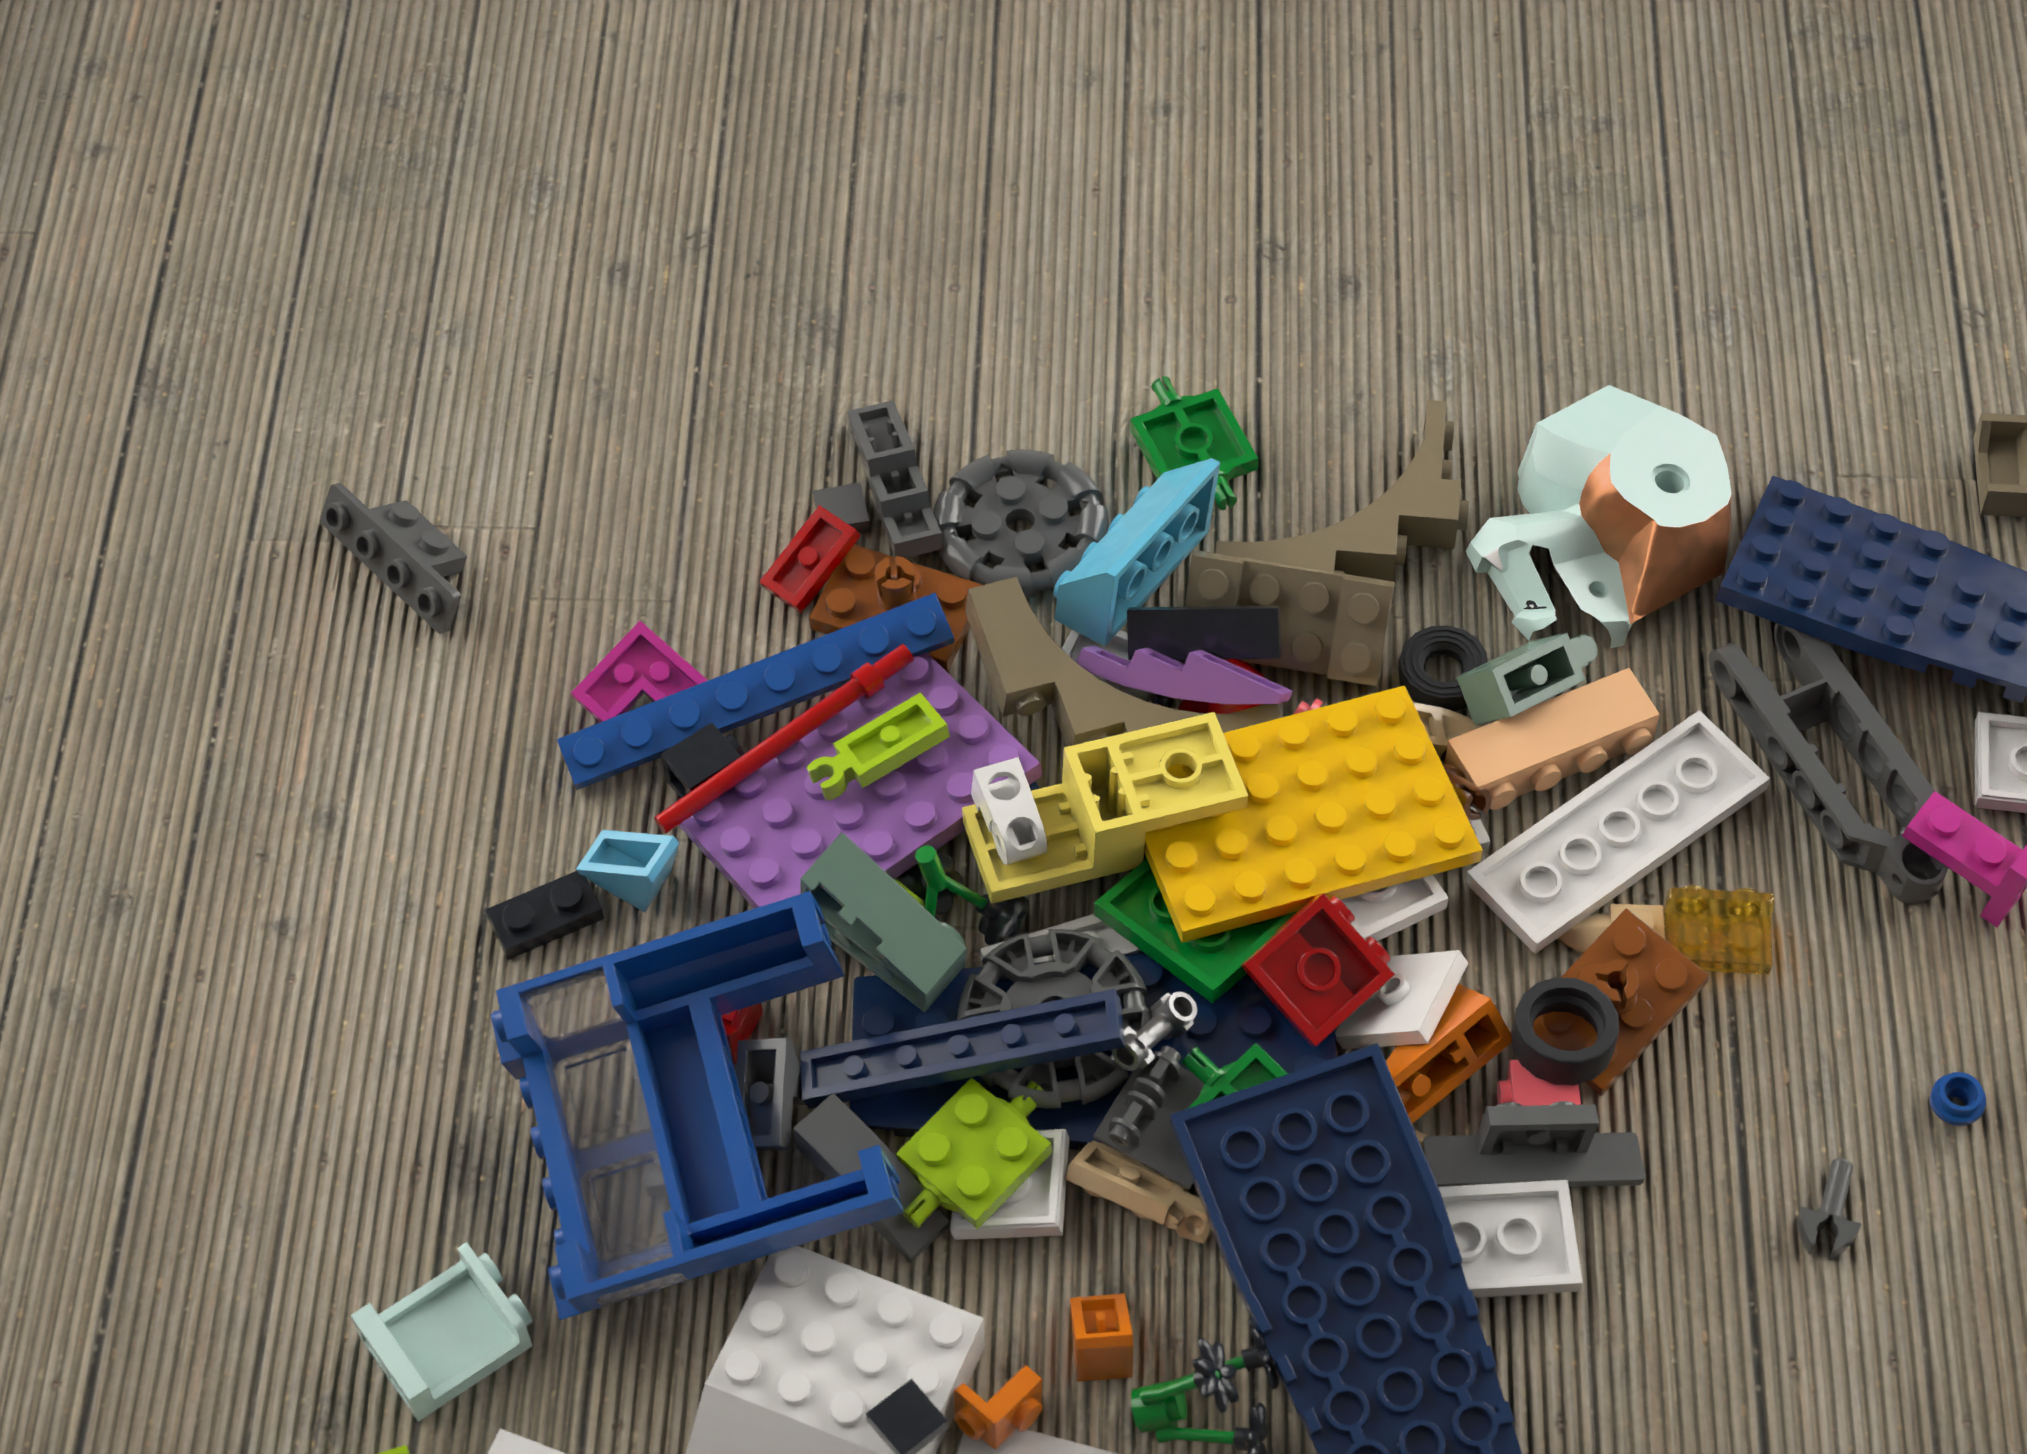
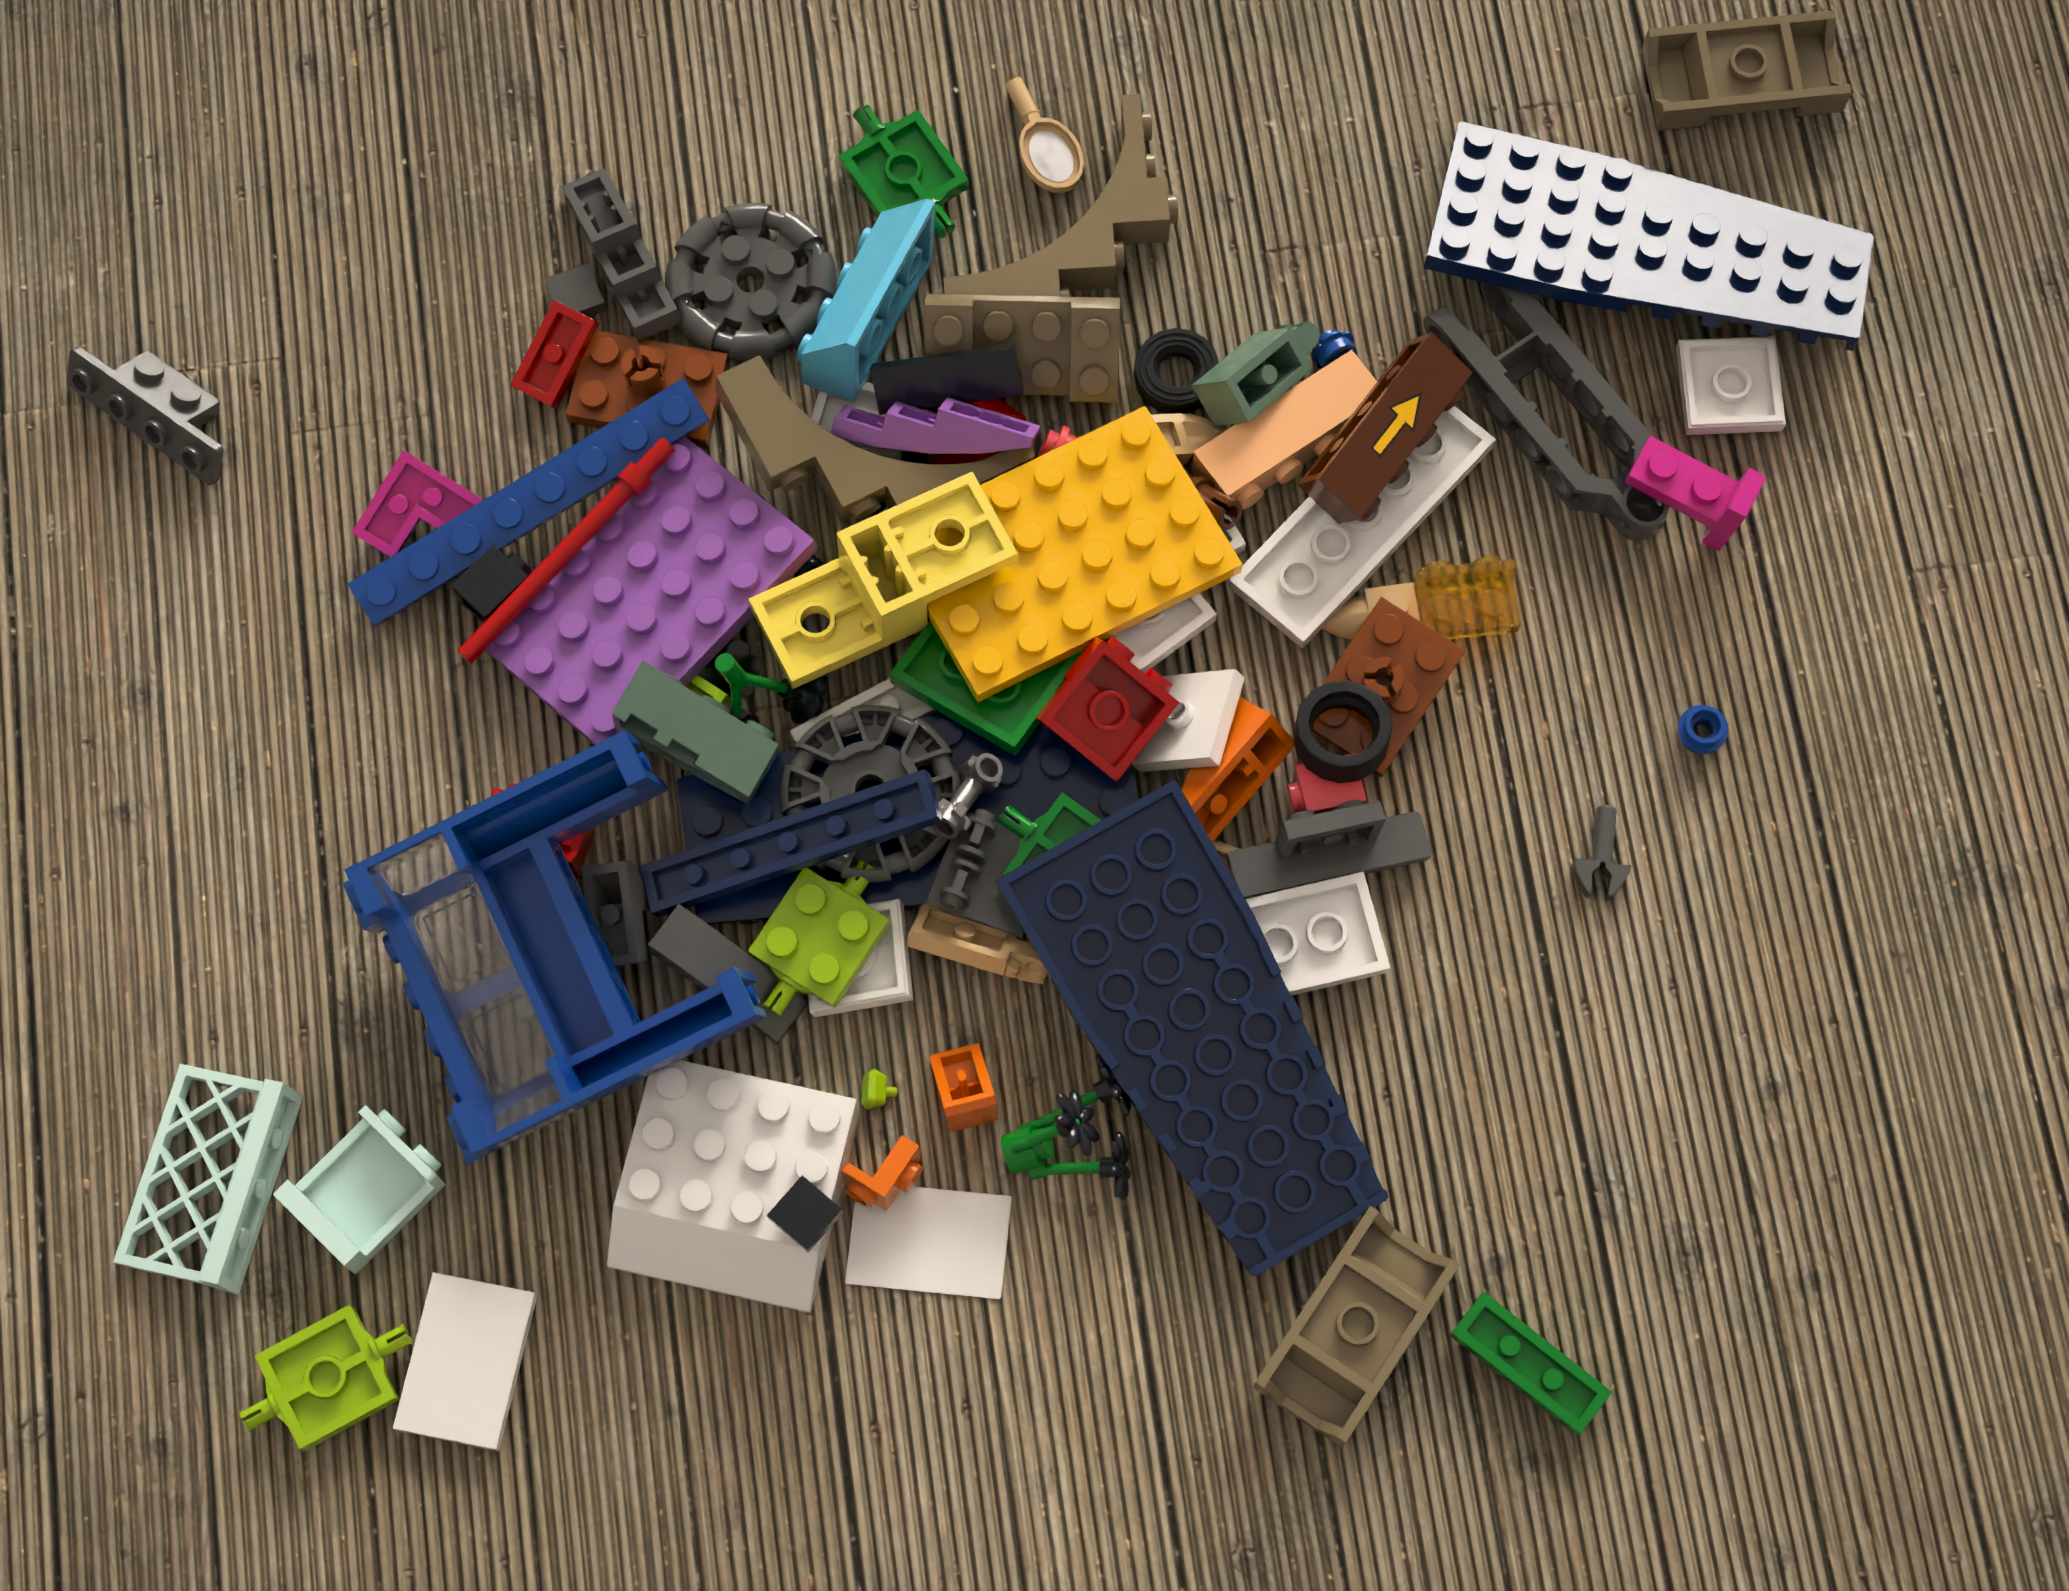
camera: 10 degrees left, 15 degrees up
(320, 1320) = (244, 1198): none -> light aqua fence
(544, 914) = (371, 759): black plate -> none
(630, 864) = (441, 699): medium azure slope -> none
(880, 746) = (660, 548): lime plate -> none
(1006, 1322) = (875, 1090): none -> lime rock
(1009, 811) = (795, 600): white leg -> none
(1342, 441) = (1045, 145): none -> tan piece
(1608, 663) = (1332, 346): none -> blue plate
(1622, 502) = (1323, 178): light aqua piece -> none
(1653, 746) = (1386, 429): none -> reddish brown brick

